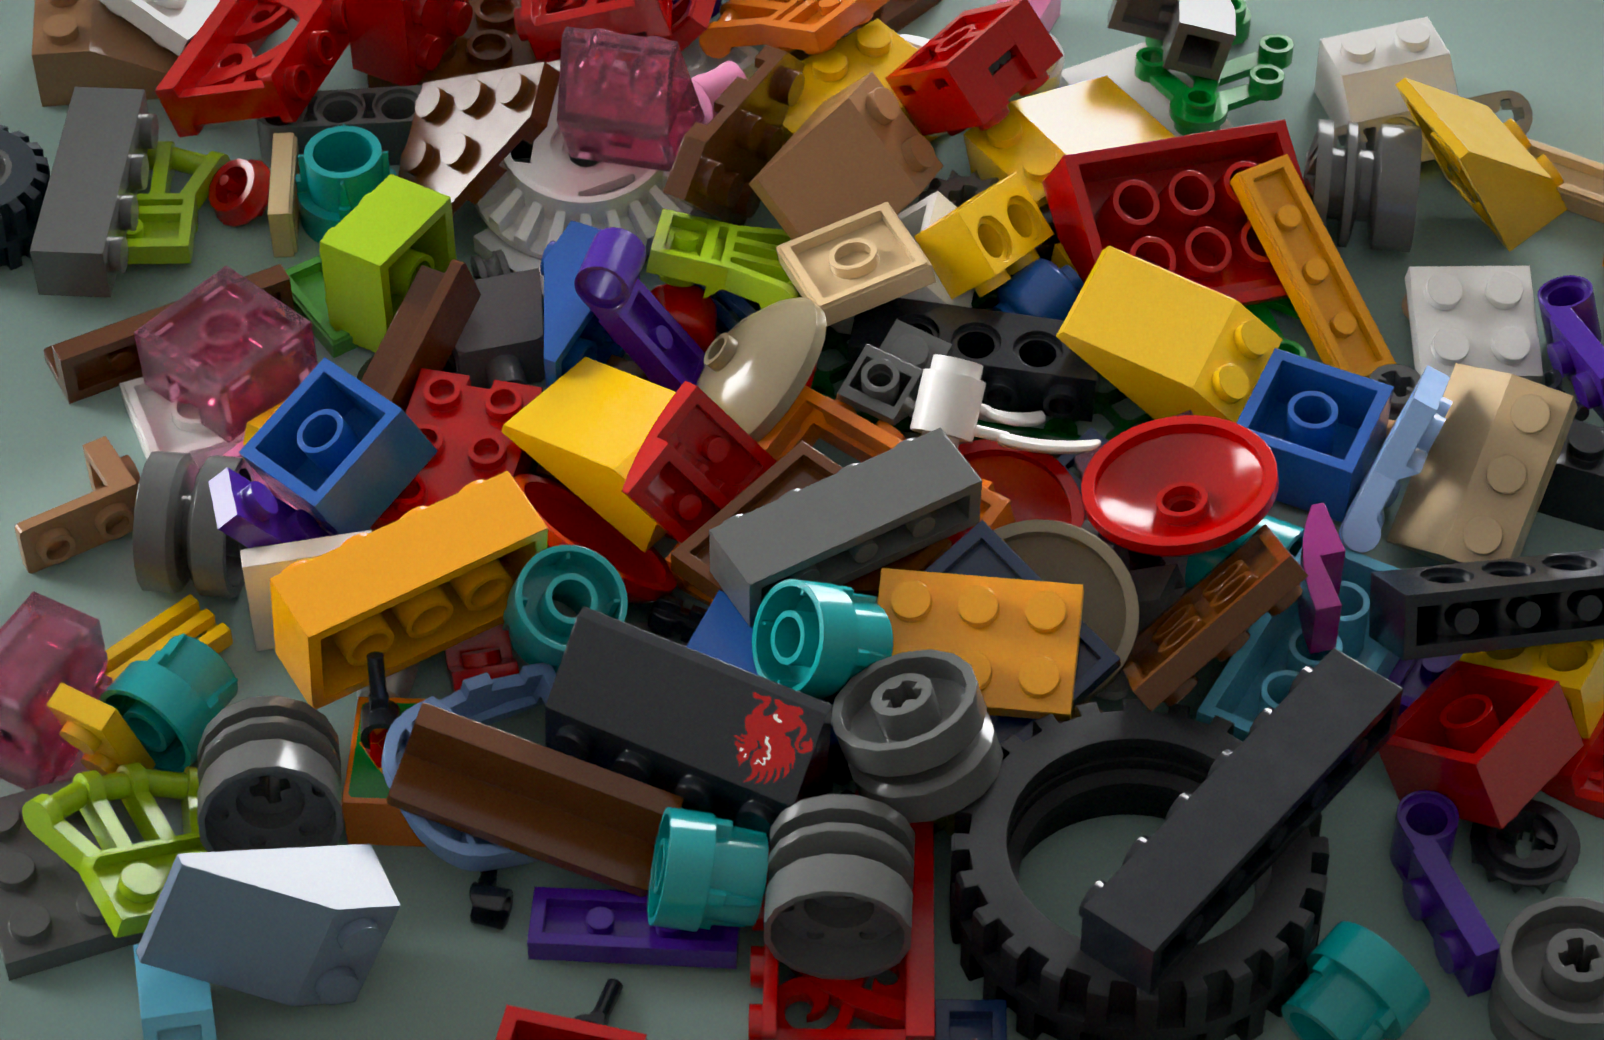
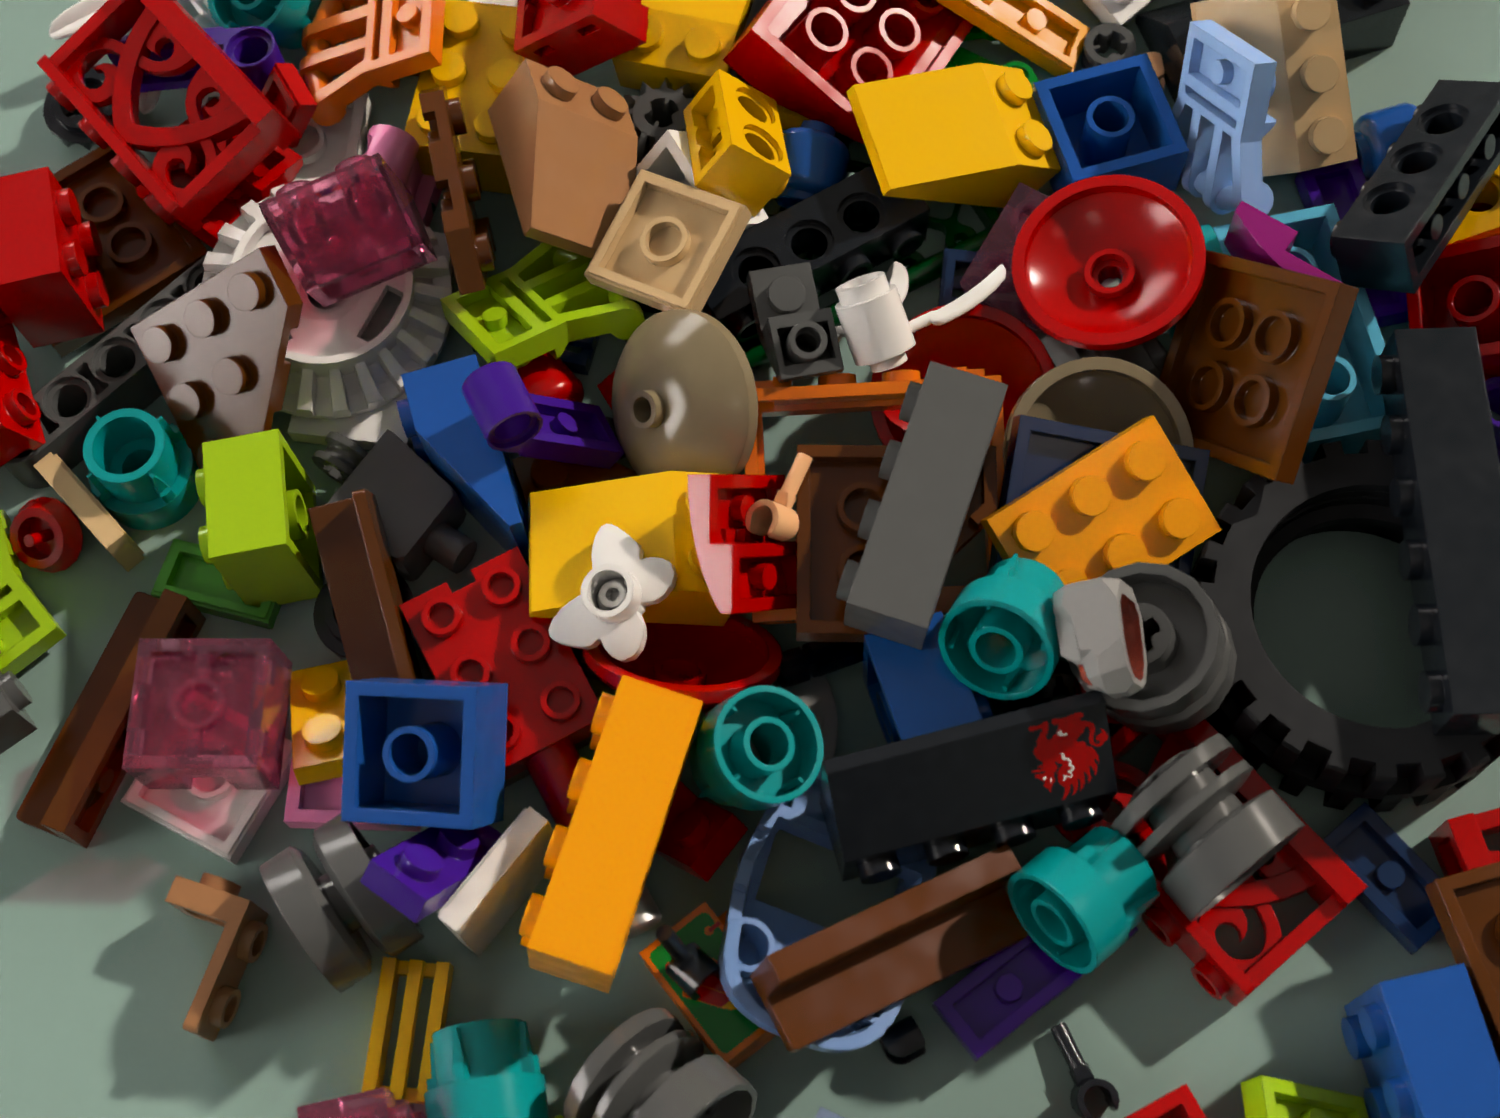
camera: 35 degrees left, 20 degrees up
(564, 440) = (614, 597): none -> white animal
(736, 474) = (777, 516): none -> light nougat hand
(870, 665) = (1102, 634): none -> light grey rock

